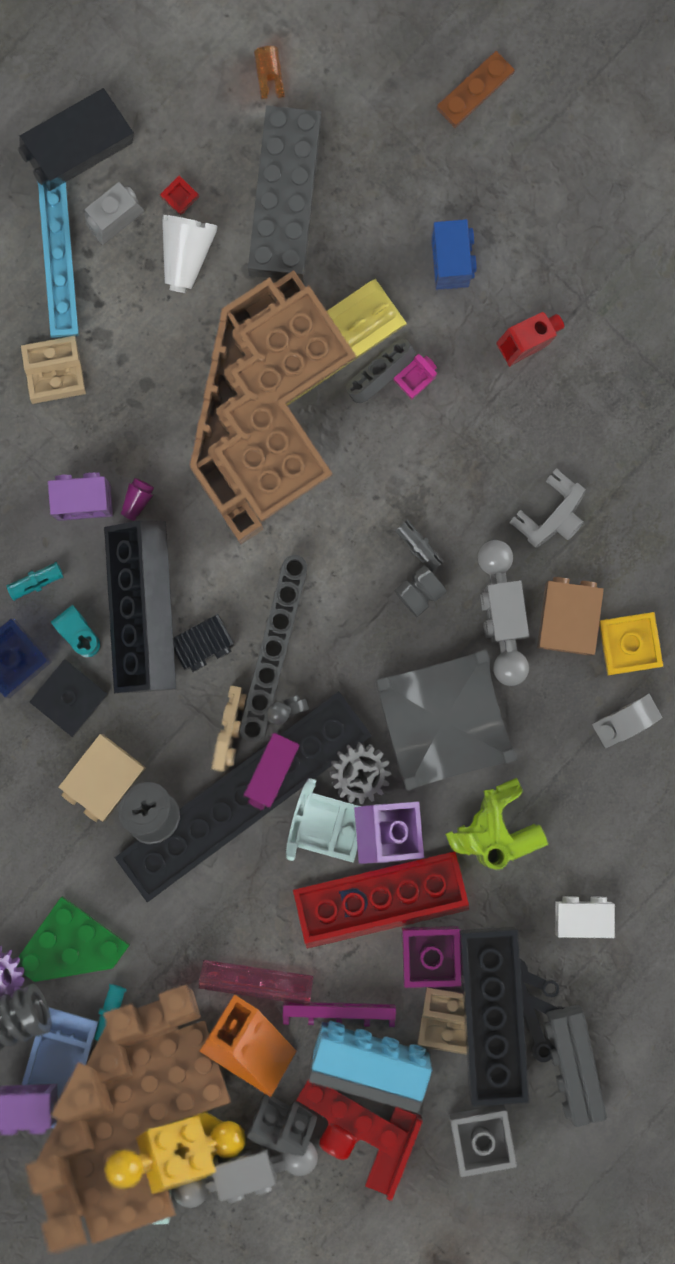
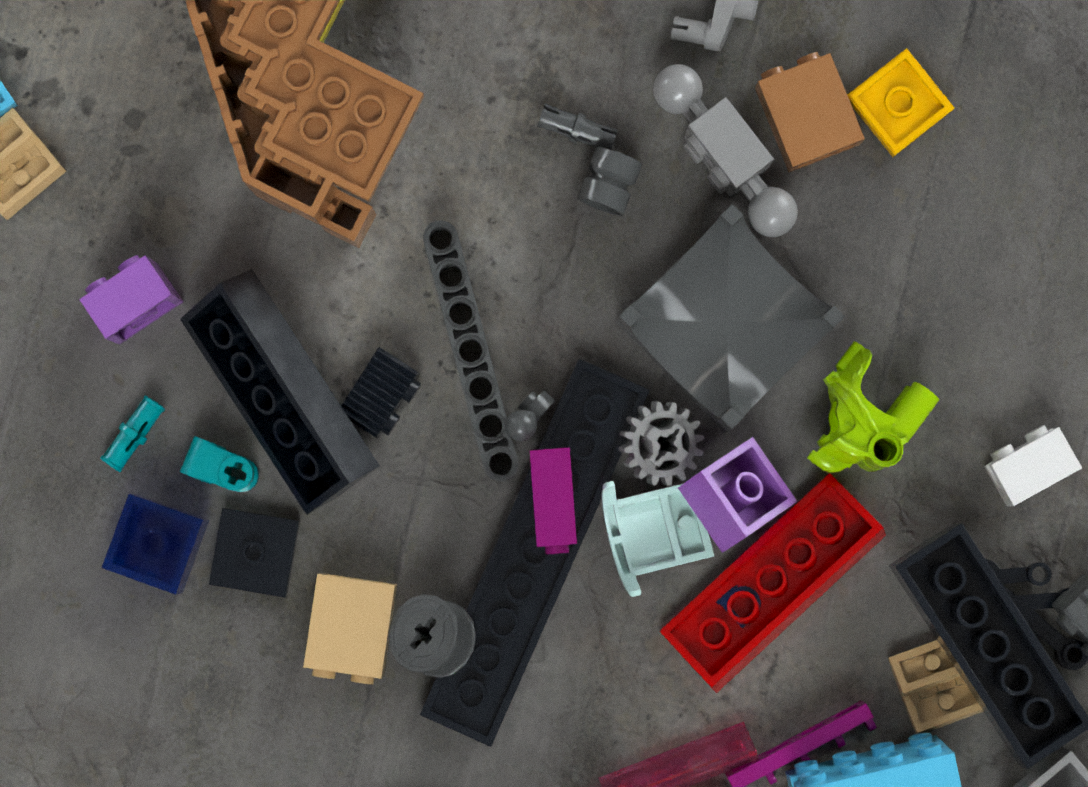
camera: 25 degrees left, 0 degrees up
(136, 498) = (200, 263): magenta cone -> none
(224, 752) = (483, 511): tan plate -> none
(431, 956) = (873, 616): magenta brick -> none
(627, 721) = (949, 198): light grey brick -> none

